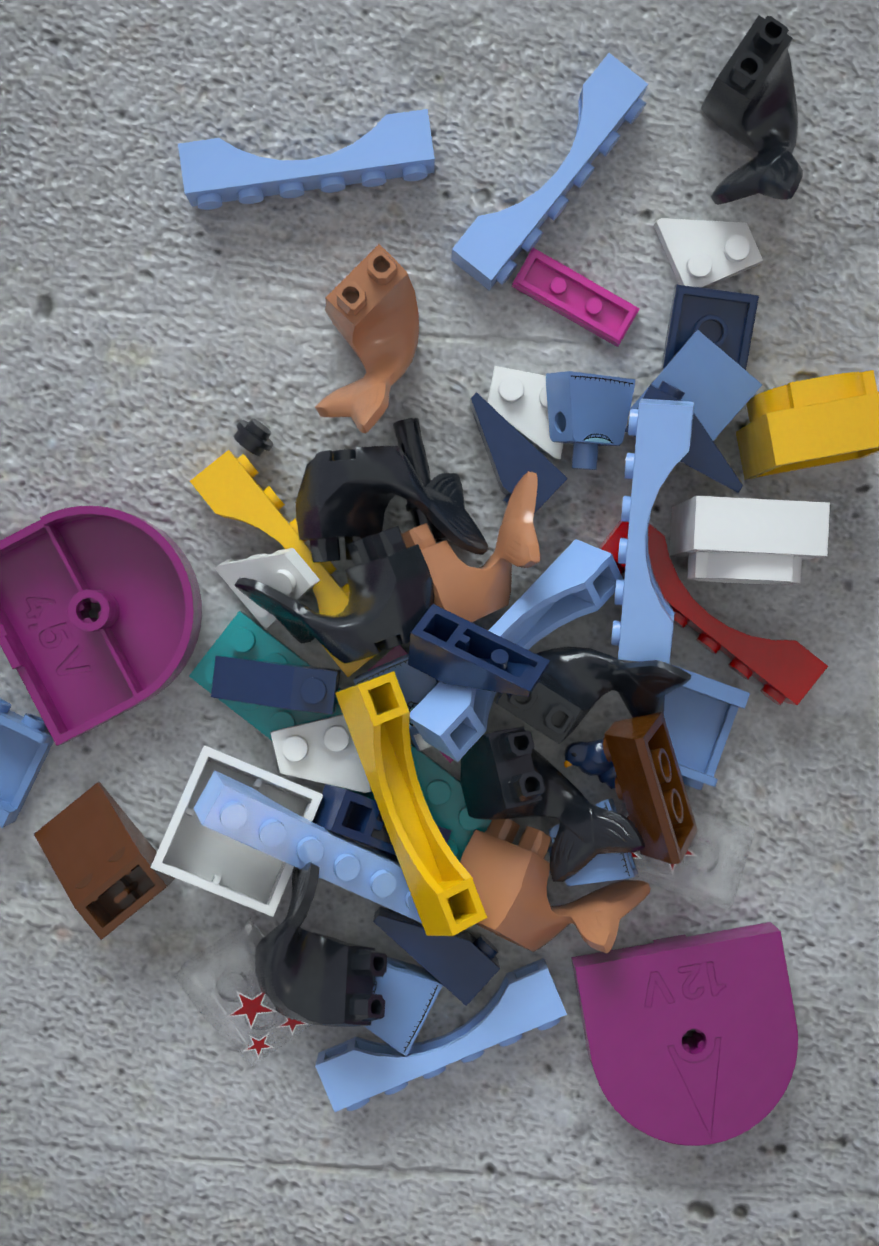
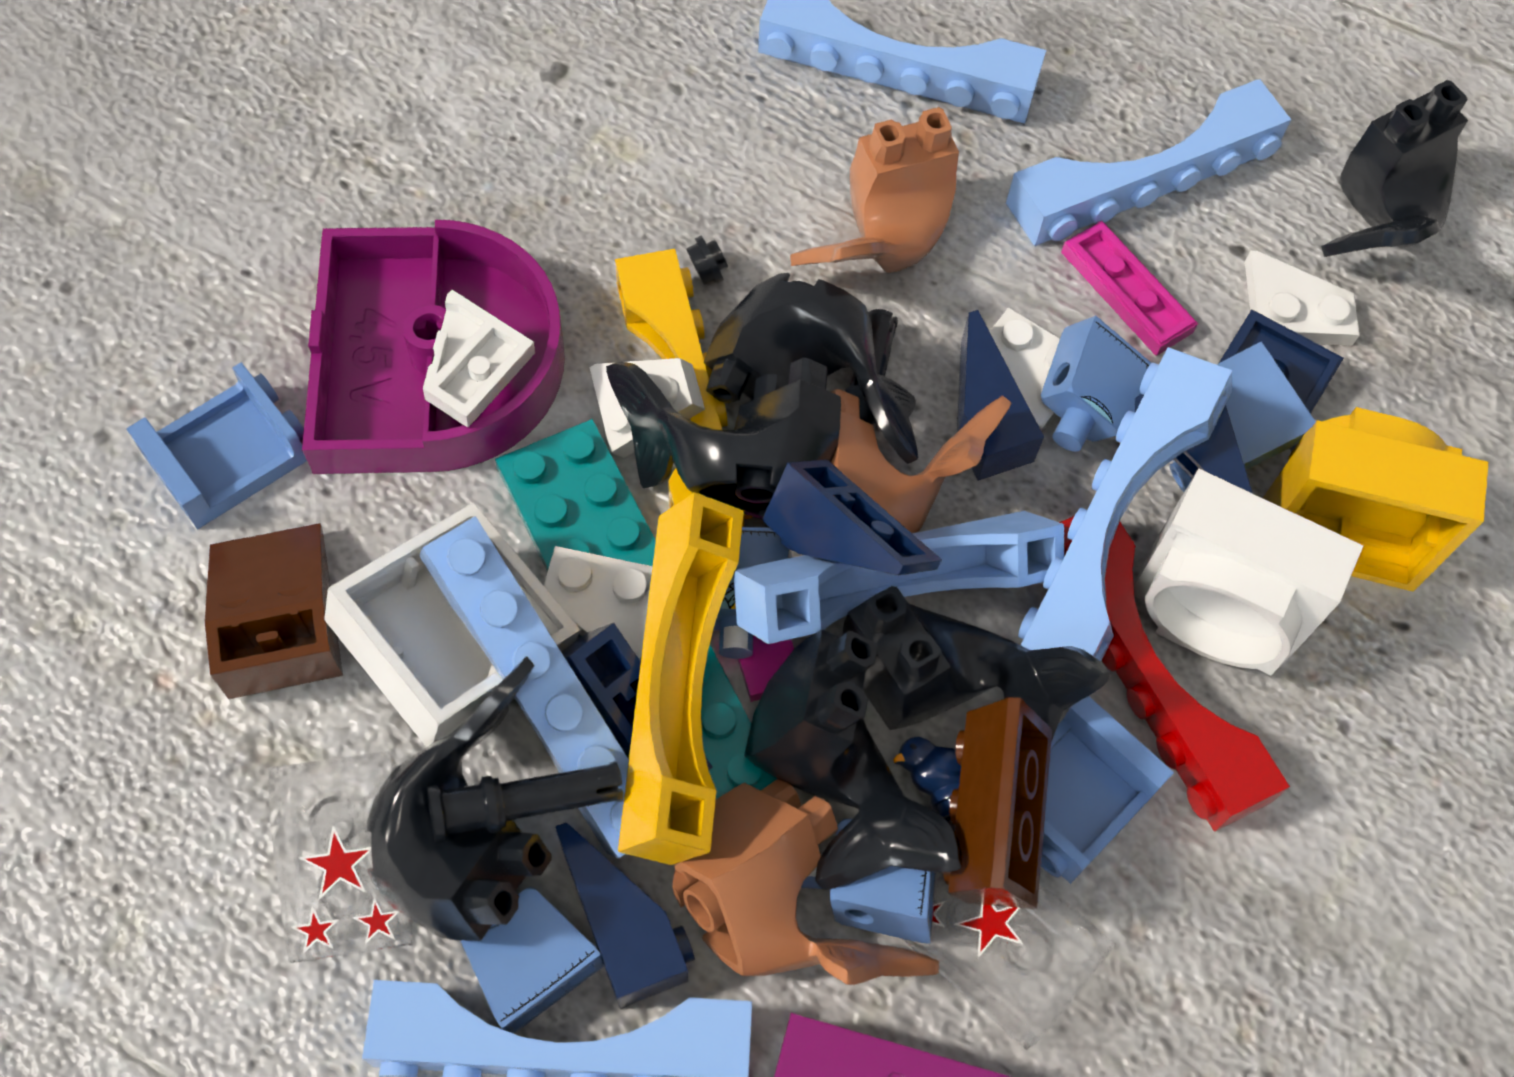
camera: 20 degrees right, 25 degrees down
(136, 625) = (472, 360): none -> white wing
(276, 684) = (595, 498): dark blue slope -> none
(336, 950) = (494, 803): none -> black pin

